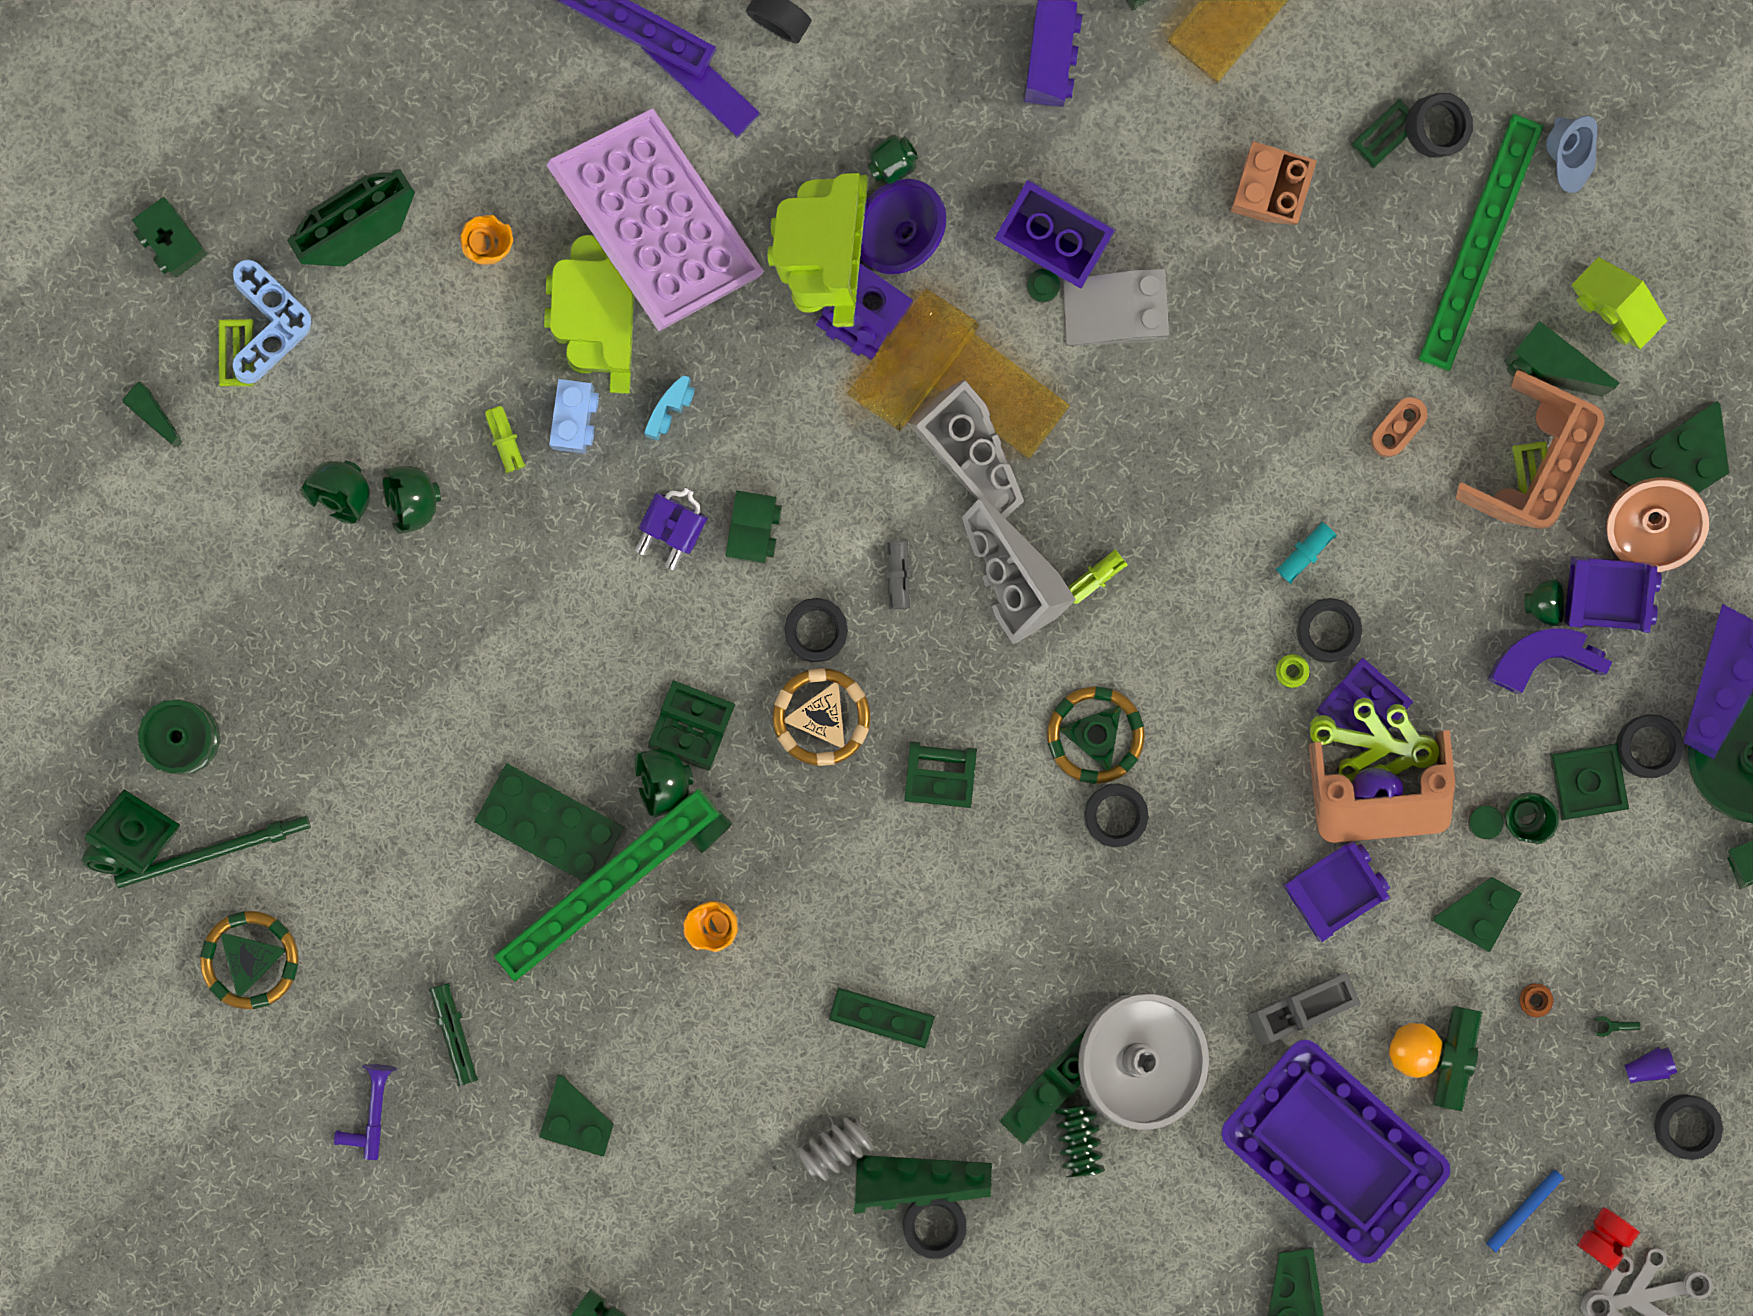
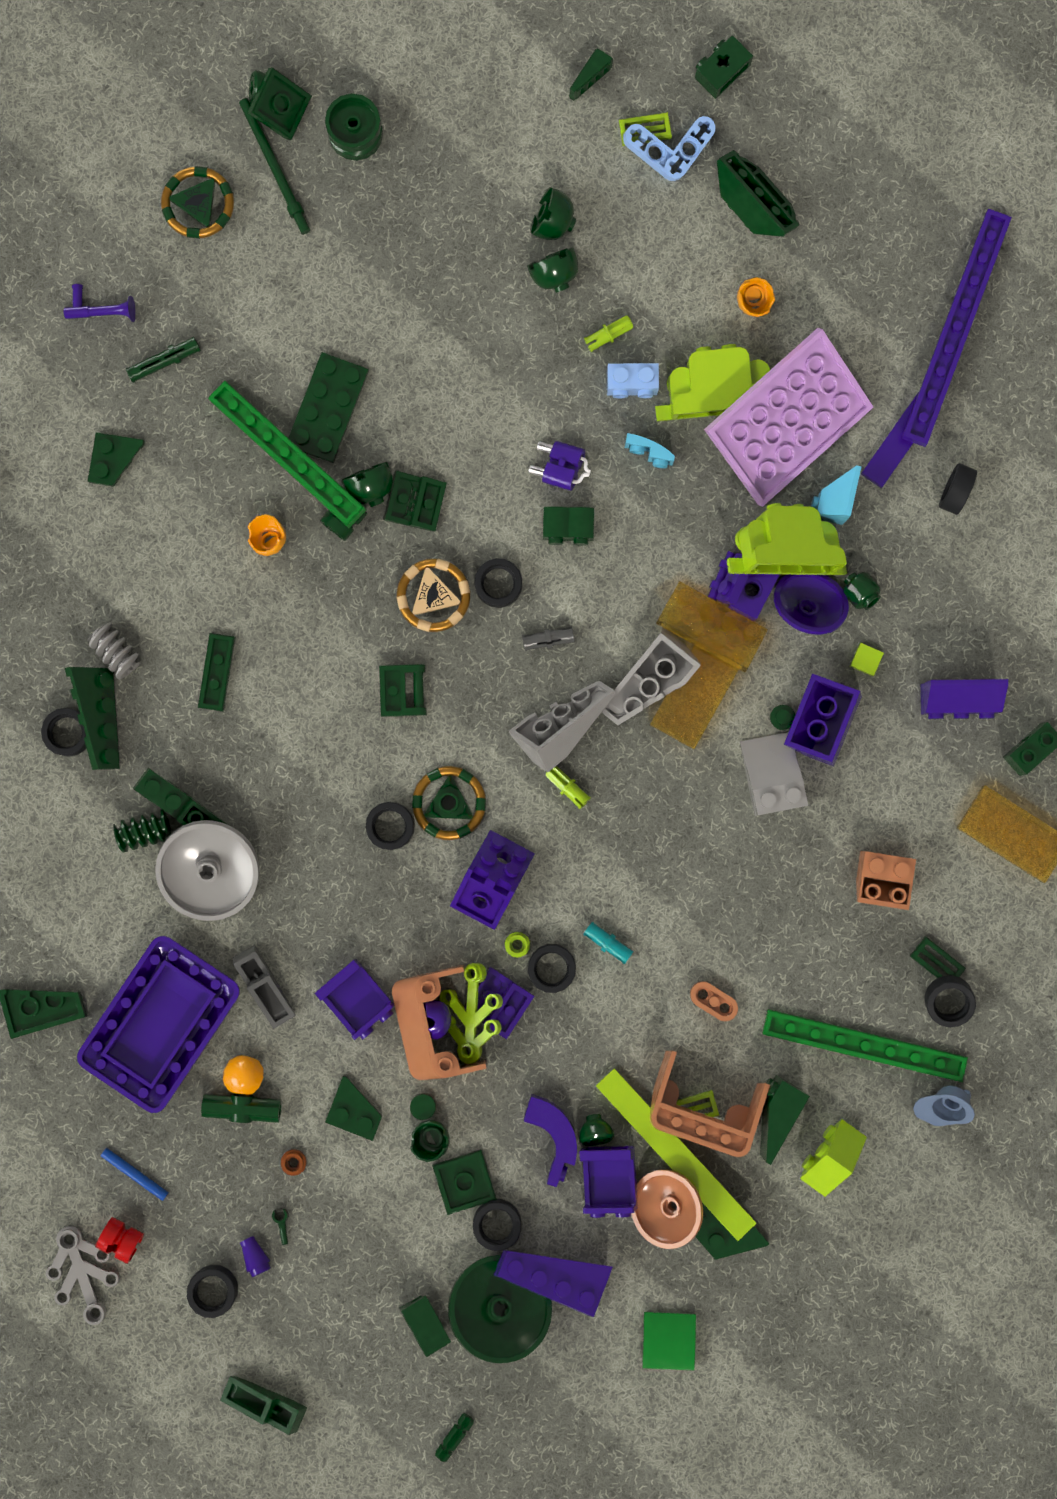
camera: 80 degrees right, 0 degrees up
(770, 172) = (837, 498): none -> medium azure slope
(982, 166) = (866, 659): none -> lime tile
(1205, 690) = (492, 879): none -> dark purple bracket
(1589, 503) = (676, 1155): none -> lime tile

